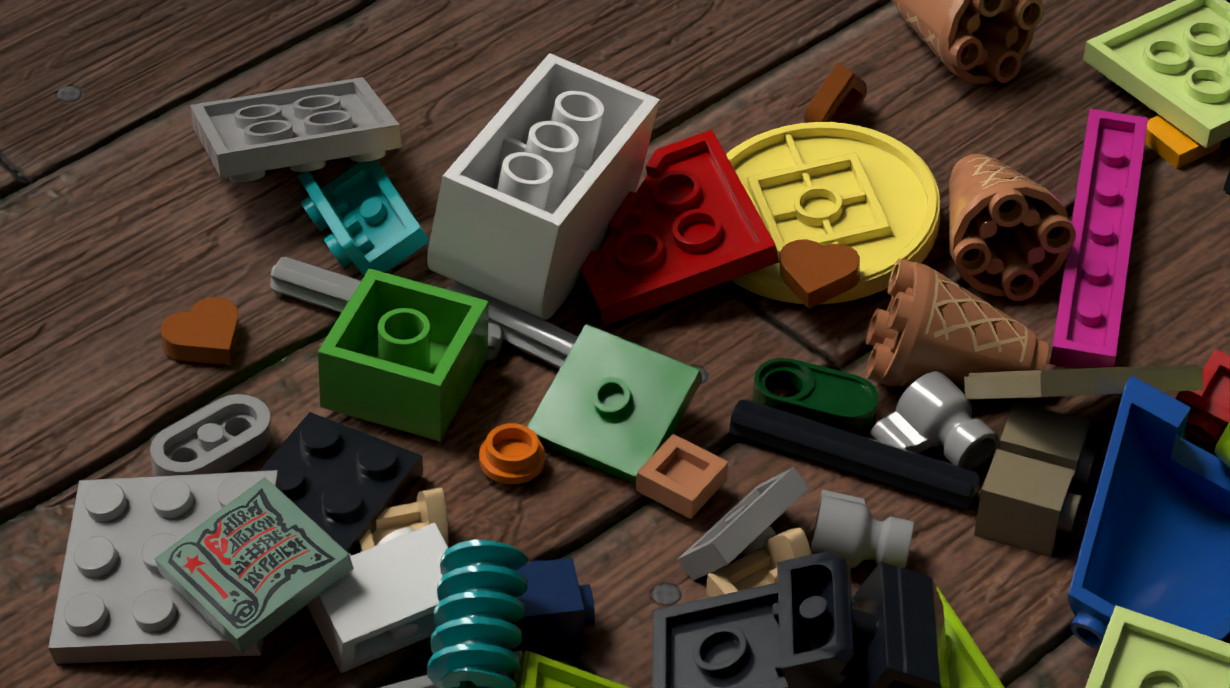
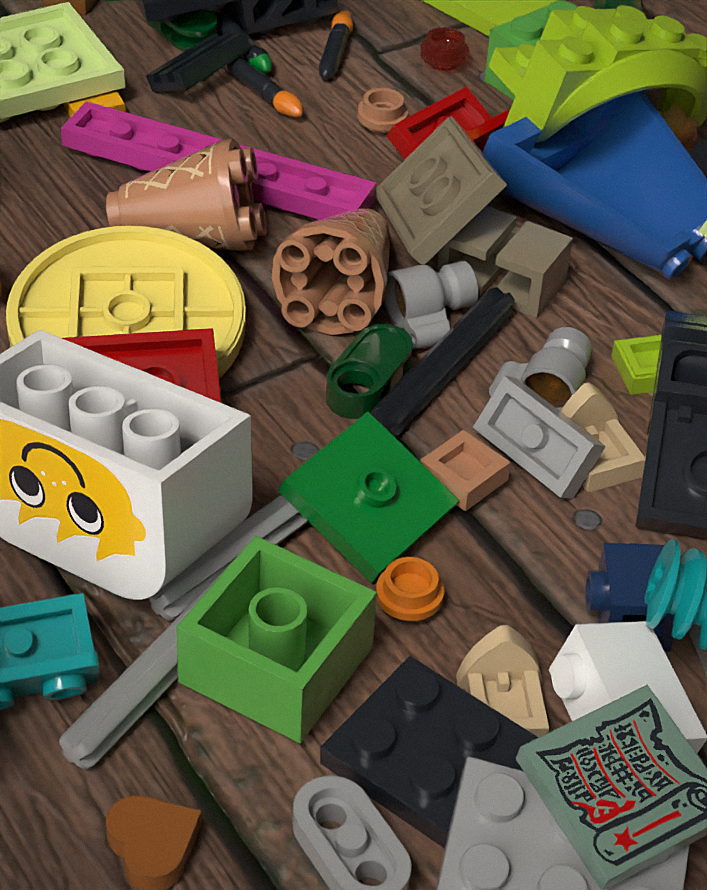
camera: 80 degrees left, 0 degrees up
(818, 271) = (235, 319): dark orange tile -> none

